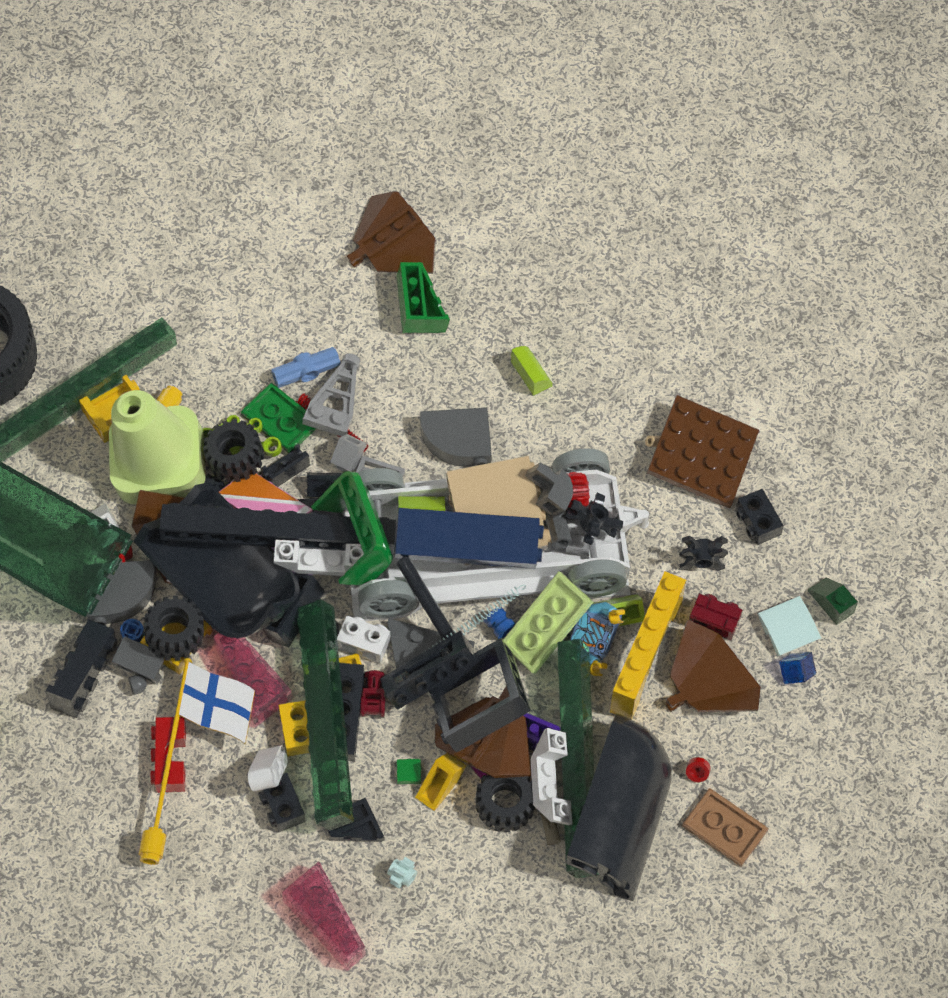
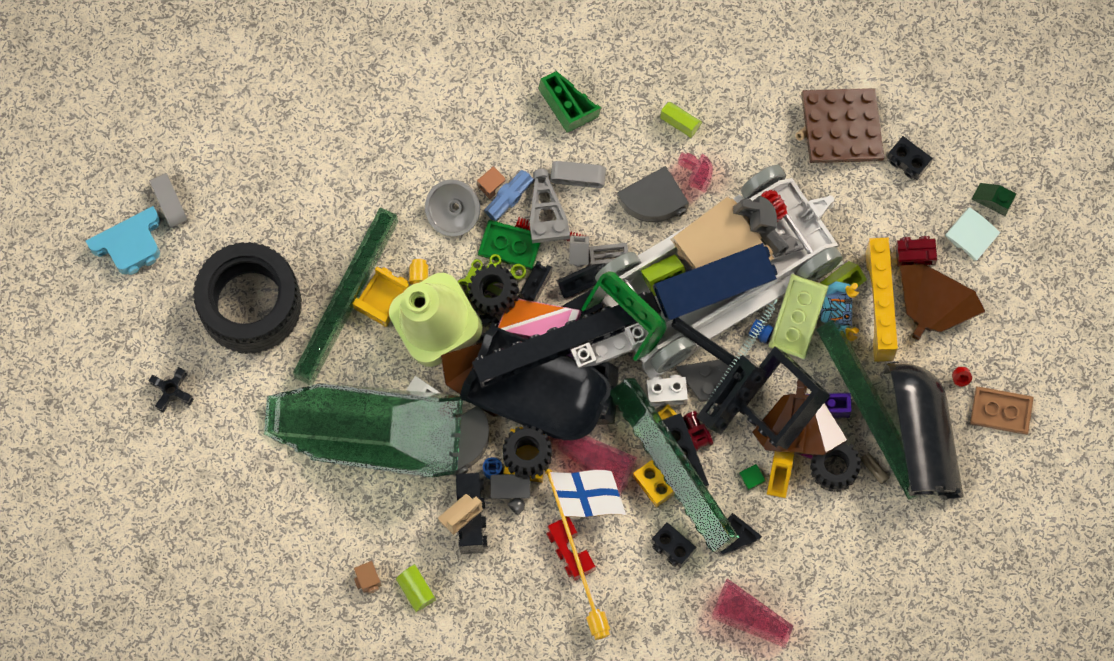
camera: 20 degrees left, 10 degrees up
(67, 659) = (460, 513): none -> tan panel
(228, 349) = (441, 209): none -> light grey dish
(267, 768) = (652, 526): white beam -> none
(293, 343) = (490, 182): none -> nougat panel
(390, 378) = (578, 174): none -> light grey beam
(391, 235) = (518, 56): reddish brown panel -> none
(402, 872) = (788, 556): light aqua gear -> none
(524, 430) = (701, 168): none -> clear pink brick
(543, 773) = (852, 412): white slope -> none
(594, 518) = (797, 221): black pin -> none
(703, 553) = (884, 207): black pin -> none
(797, 667) = (995, 263): clear blue panel -> none

